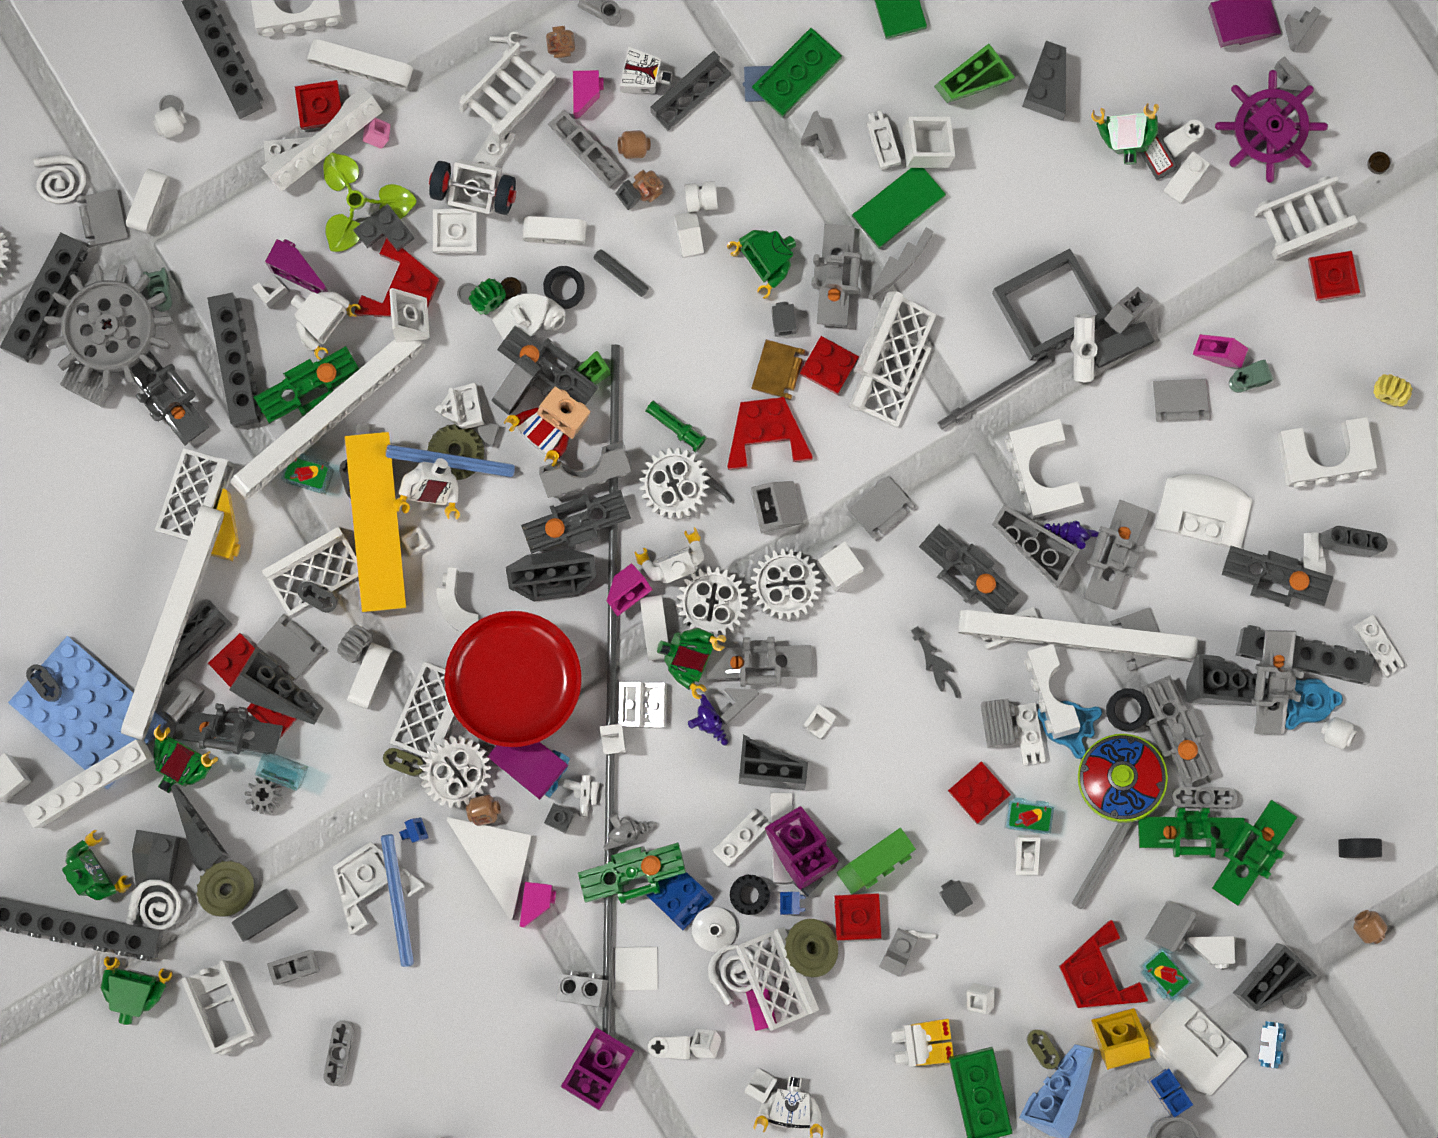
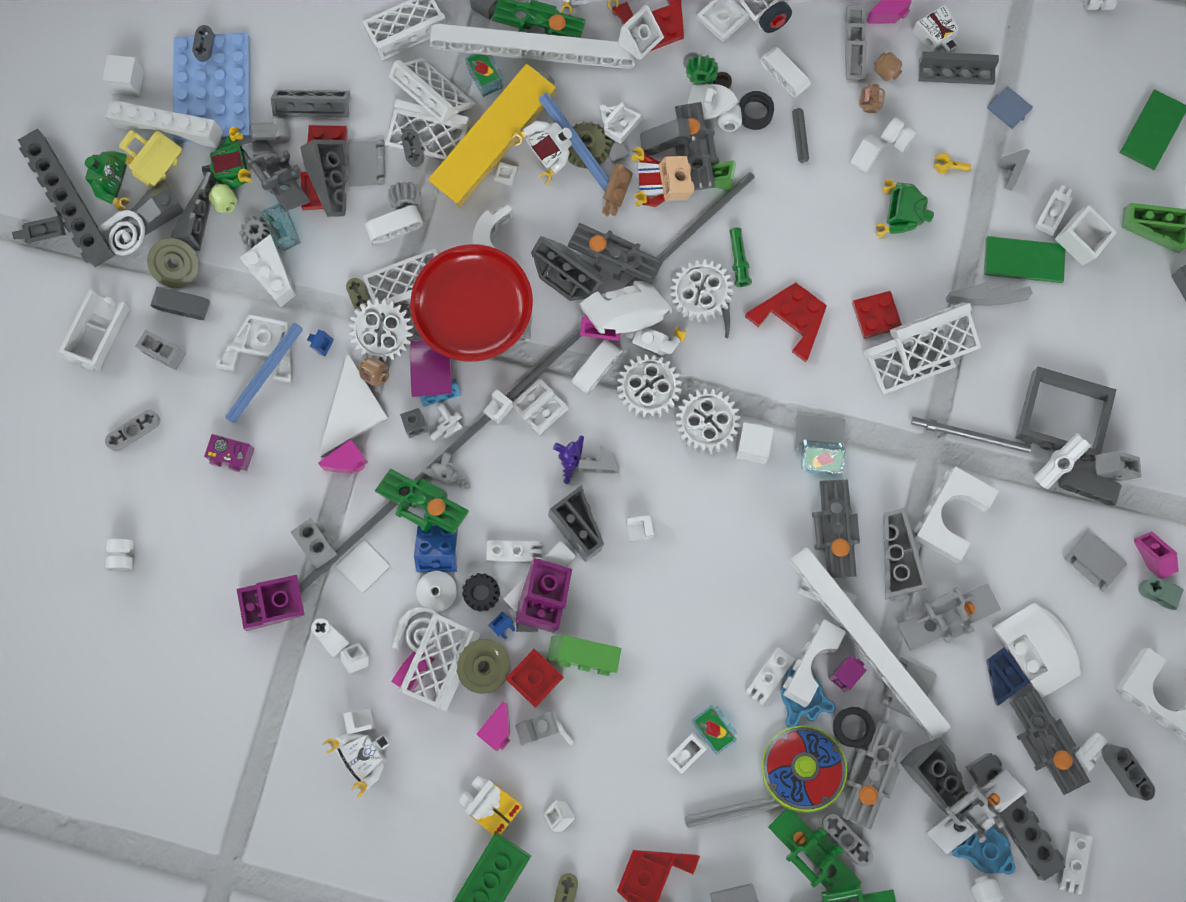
camera: 50 degrees right, 5 degrees down
(82, 973) = (41, 230): none -> dark grey hinge
(111, 821) = (154, 158): none -> light yellow piece
(130, 991) = (55, 268): green torso -> none
(172, 622) = (310, 76): white beam -> none
(205, 795) = (222, 198): none -> yellowish green head
(227, 540) = (405, 52): yellow slope -> none
(282, 542) = (430, 97): none -> white fence
(309, 815) = (269, 270): none -> white wedge
(437, 991) = (229, 453): none -> magenta brick
(521, 467) = (616, 189): none -> medium nougat plate
(562, 479) = (632, 218): light grey arch -> none
(628, 194) = (853, 93): dark grey tile -> none
(634, 559) = (626, 308): none -> white slope
(688, 656) = (598, 402): torso -> none
(759, 654) = (642, 446): light grey piece -> none
(764, 180) = (948, 164): none -> yellow bar
(776, 506) = (752, 366): light grey slope -> none
(777, 369) = (840, 286): pearl gold piece -> none
(783, 319) = (876, 258): dark grey brick -> none
(796, 72) = (1039, 120): green tile -> none
(828, 271) = (934, 257): light grey piece -> none
(869, 983) = (497, 728): none -> dark pink slope
(902, 524) = (822, 457): none -> brick
(938, 663) = (756, 569): dark grey piece -> none
(955, 896) = (611, 731): dark grey brick -> none
(979, 792) = (697, 680): red plate -> none
(998, 722) = (756, 647): light grey brick -> none
(1072, 533) = (933, 574): dark purple piece -> none
(1085, 674) = (848, 673): none -> magenta brick
(1199, 558) = (1005, 676): none -> dark blue wing

